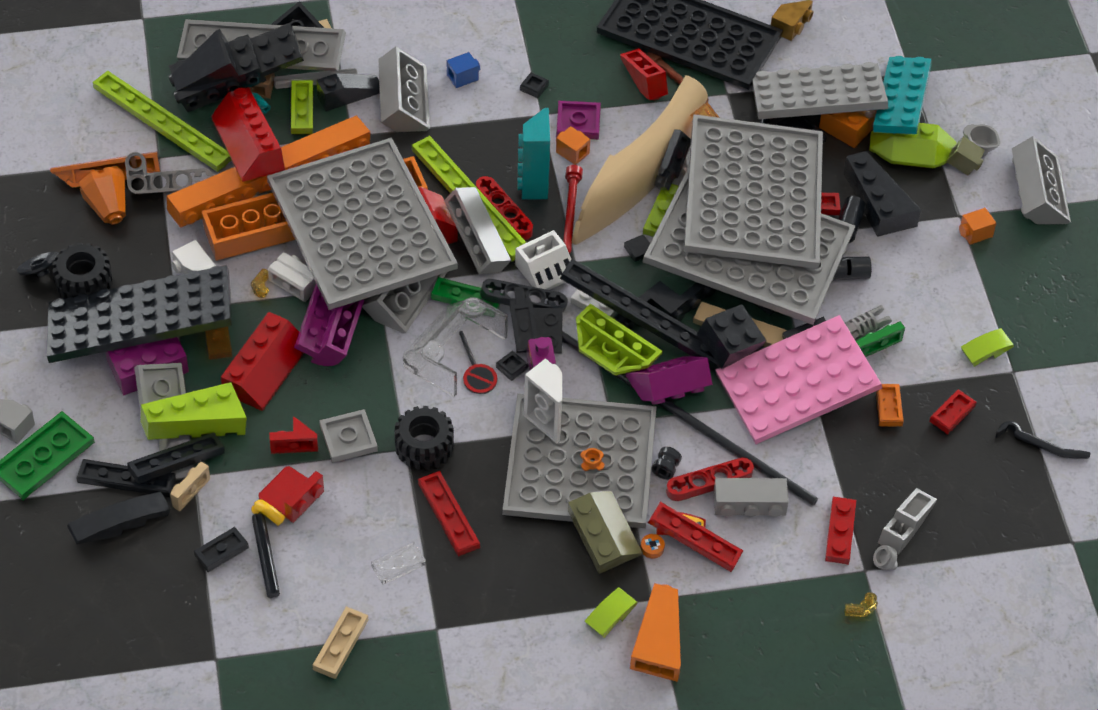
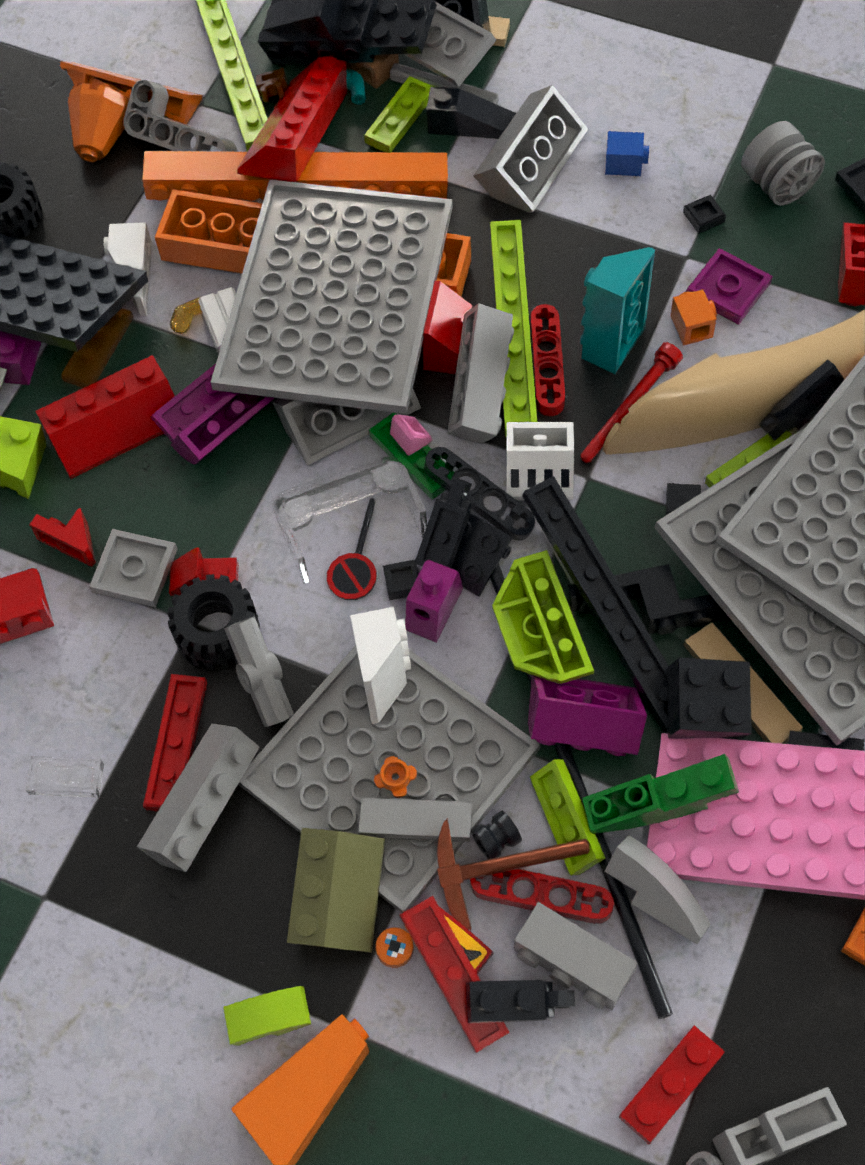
camera: 40 degrees right, 10 degrees up
(204, 122) = (271, 84): none -> reddish brown plate
(385, 418) = (194, 565): none -> red slope
(458, 284) = (409, 433): none -> bright pink slope
(475, 445) = (259, 671): none -> light grey piece
(490, 527) = (198, 797): none -> light grey brick
(564, 34) = (782, 163): none -> light grey wheel
(620, 473) = (414, 818): none -> light grey tile
(659, 491) = (453, 874): none -> copper piece
(696, 434) = (566, 813): none -> lime plate
(737, 531) = (514, 1001): none -> black hinge
(743, 395) = (660, 798): none -> green slope
(769, 442) = (658, 889): none -> light grey slope

